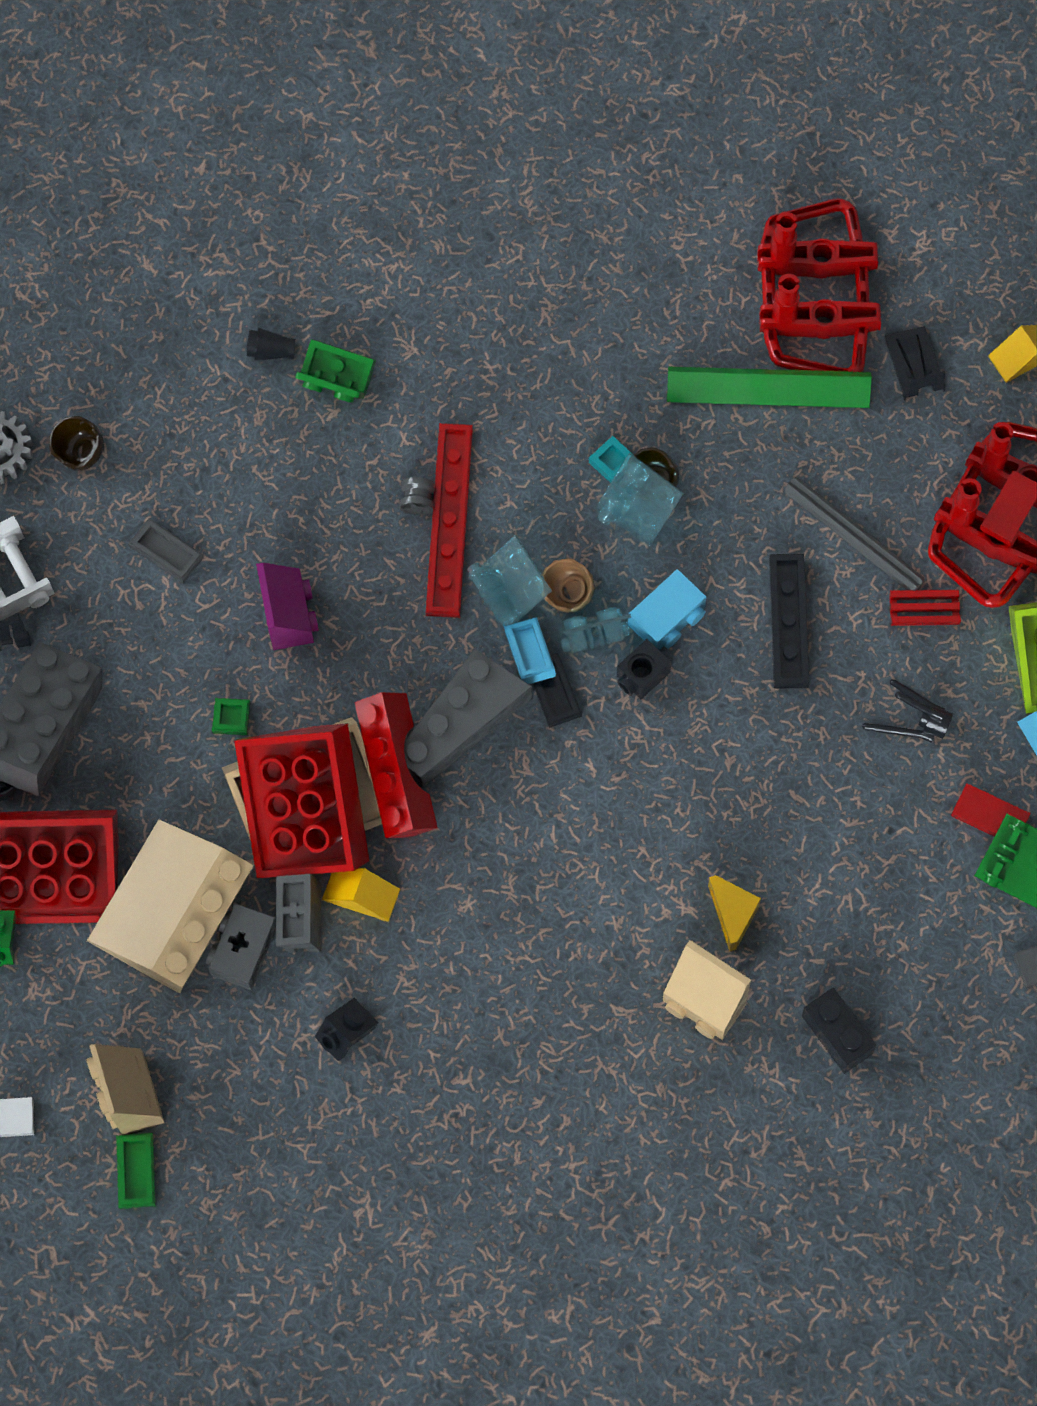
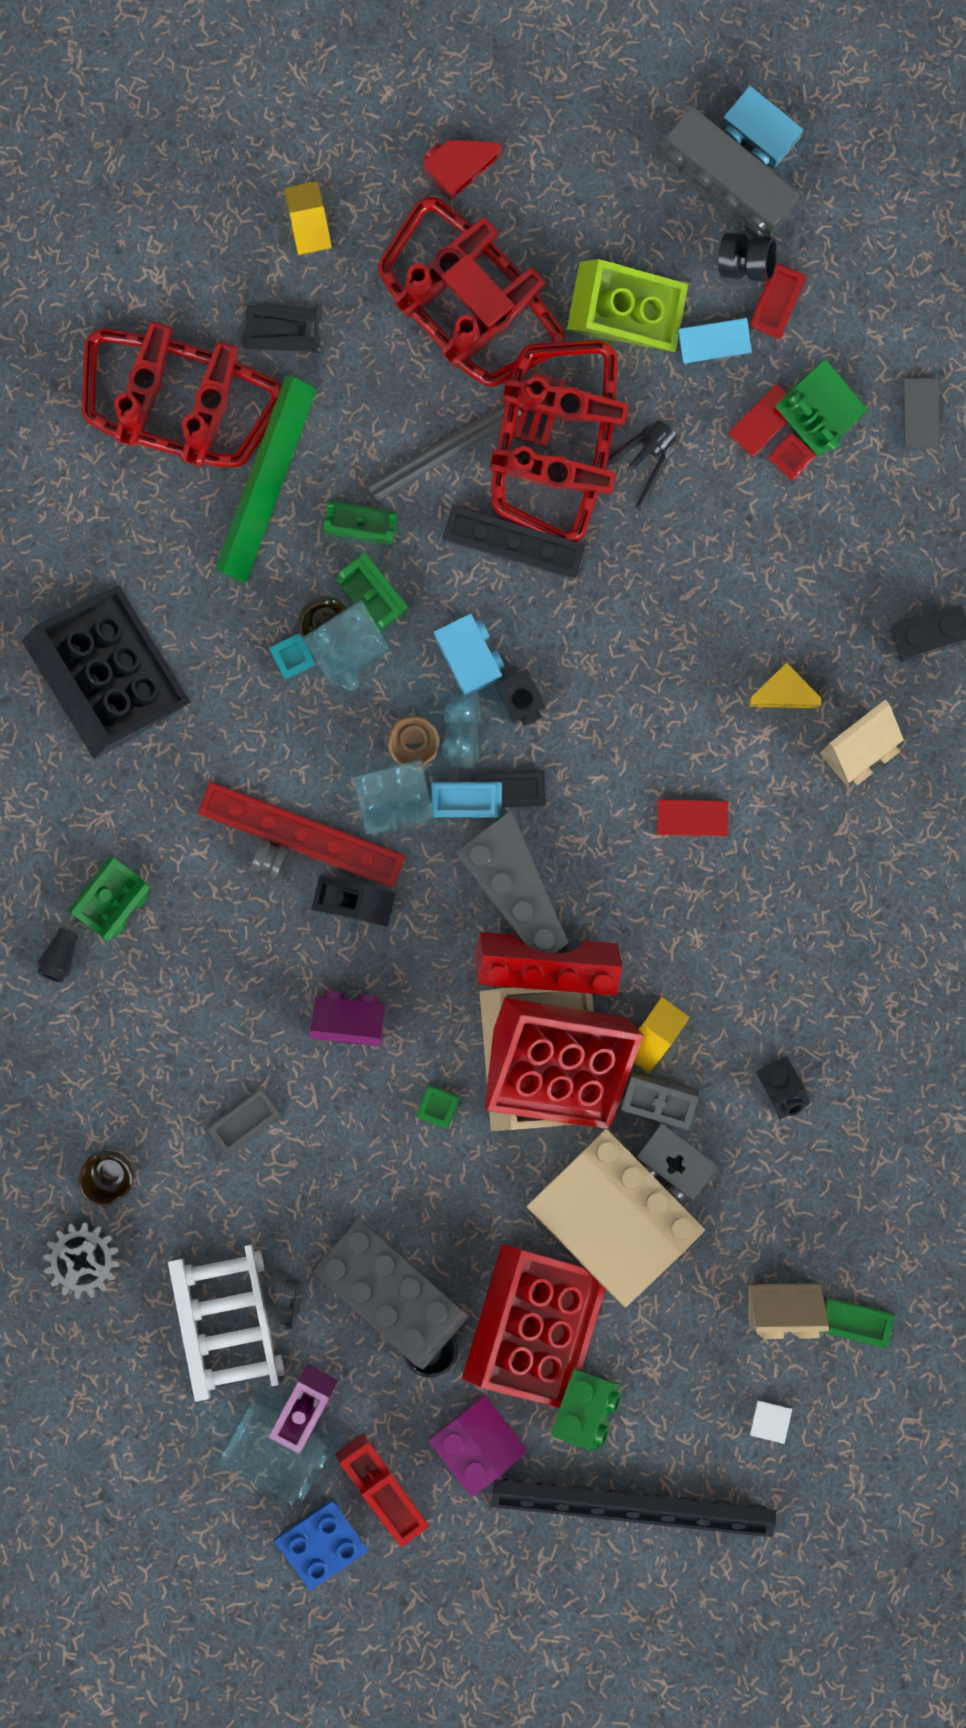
camera: 80 degrees left, 15 degrees up
(401, 582) = (353, 901): none -> black slope
(544, 306) = (105, 671): none -> black slope
(582, 864) = (692, 818): none -> red tile
(697, 510) = (365, 582): none -> green hinge
(758, 480) = (360, 523): none -> green hinge
(934, 606) = (544, 399): none -> red piece
(965, 850) = (791, 456): none -> red tile

